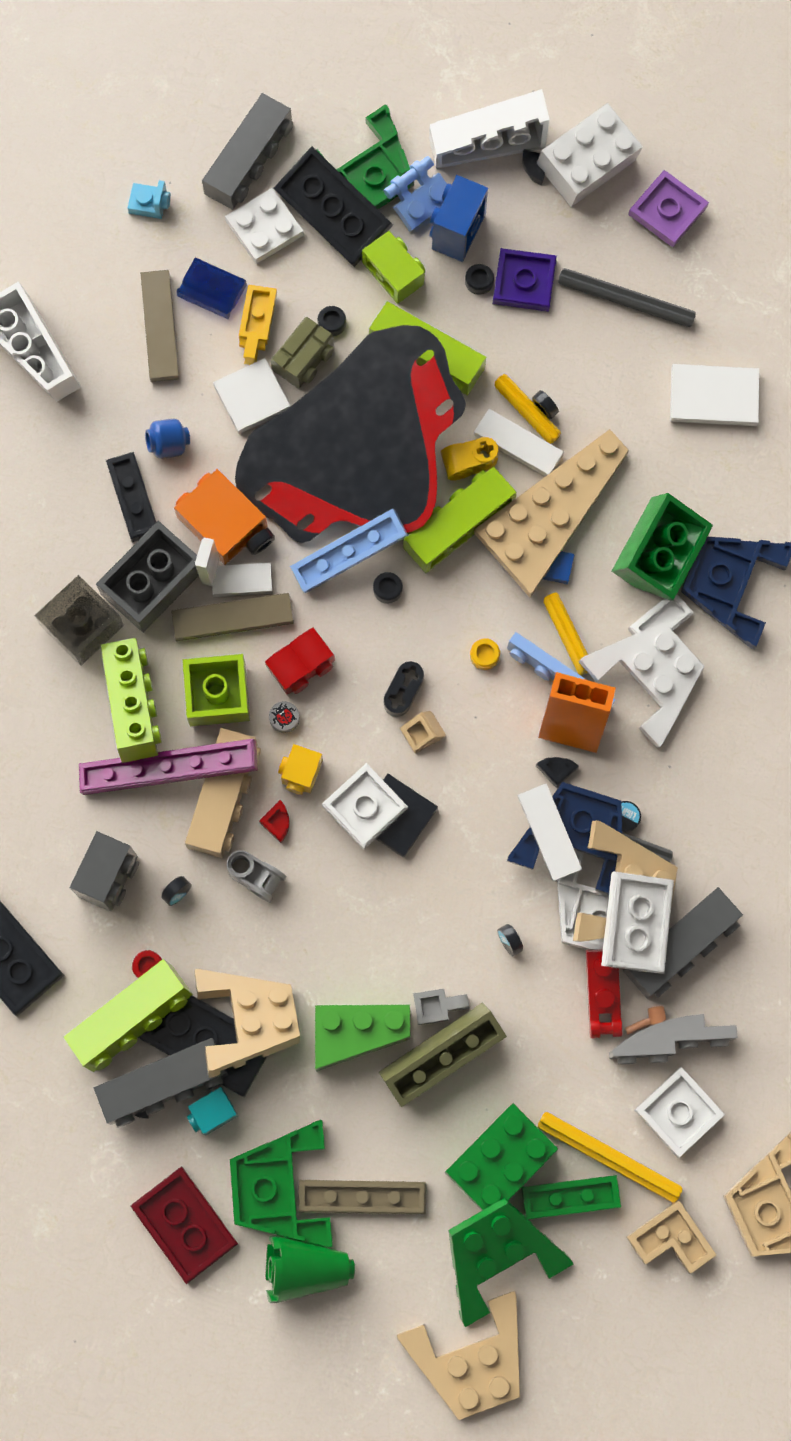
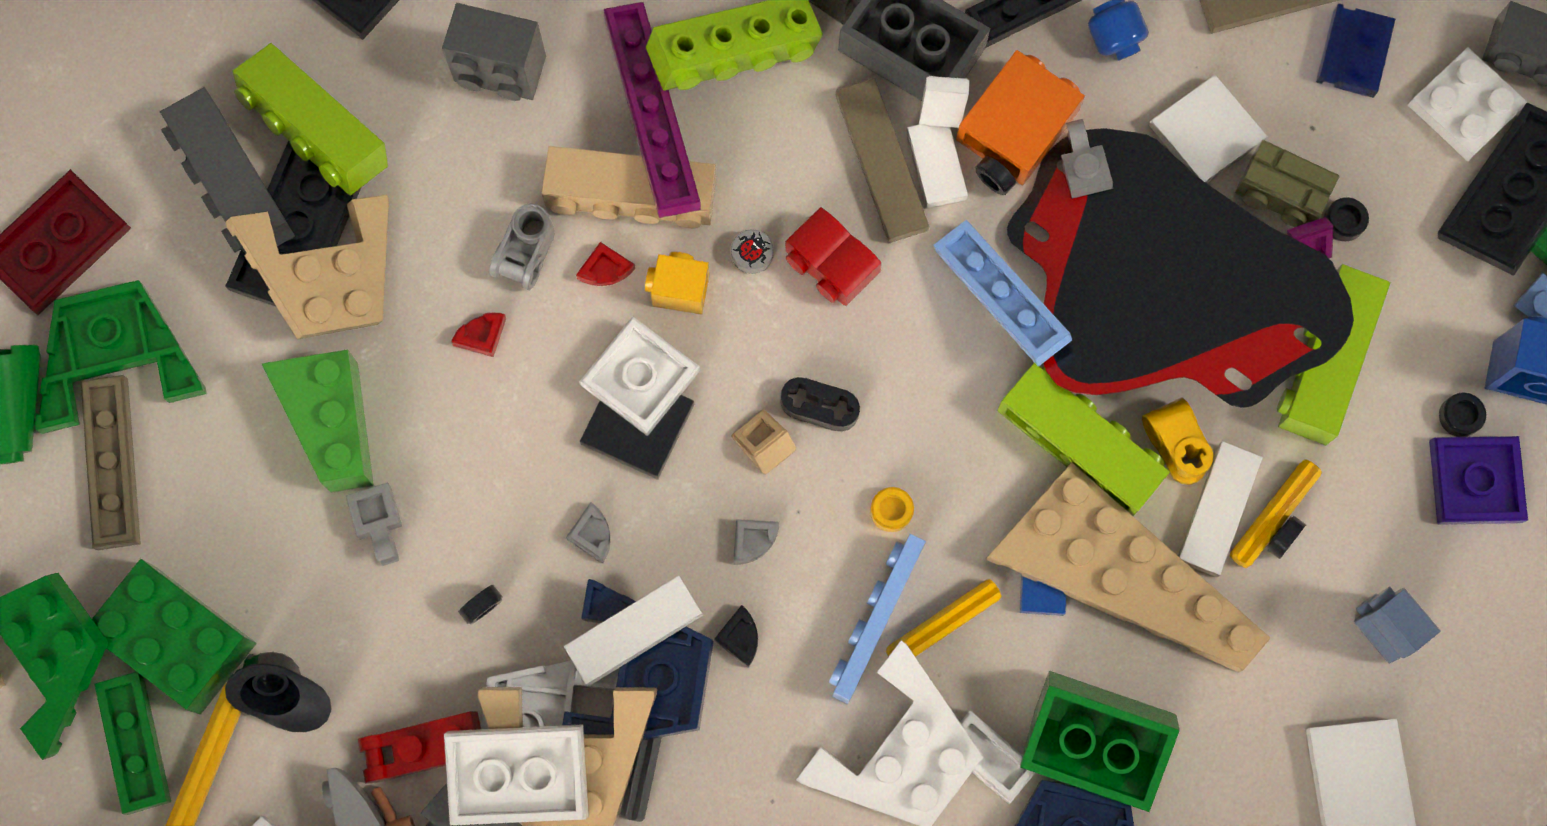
camera: 80 degrees right, 0 degrees up
(144, 961) = (391, 133): red tile -> none
(176, 890) = (488, 151): black tile -> none
(211, 1112) = (199, 248): teal brick -> none
(216, 690) = (769, 151): lime brick -> none
(256, 321) = (1319, 116): yellow hinge -> none
(267, 479) = (1086, 166): none -> light grey plate
(311, 916) = (481, 334): none -> red tile
(344, 343) = (1316, 235): none -> magenta tile
(387, 587) = (964, 359): black tile -> none
(394, 266) = (1449, 288): lime brick -> none
(442, 1054) = (305, 533): olive brick -> none
(469, 858) = (591, 533): none -> light grey tile
(491, 750) = (753, 539): none -> light grey tile
(552, 1088) = (278, 693): none -> black piece
(576, 712) = (817, 643): orange brick -> none
(616, 349) = (1395, 624): none -> sand blue brick
(627, 297) = (1487, 636): dark grey axle -> none
(630, 816) = (686, 748): tile -> none

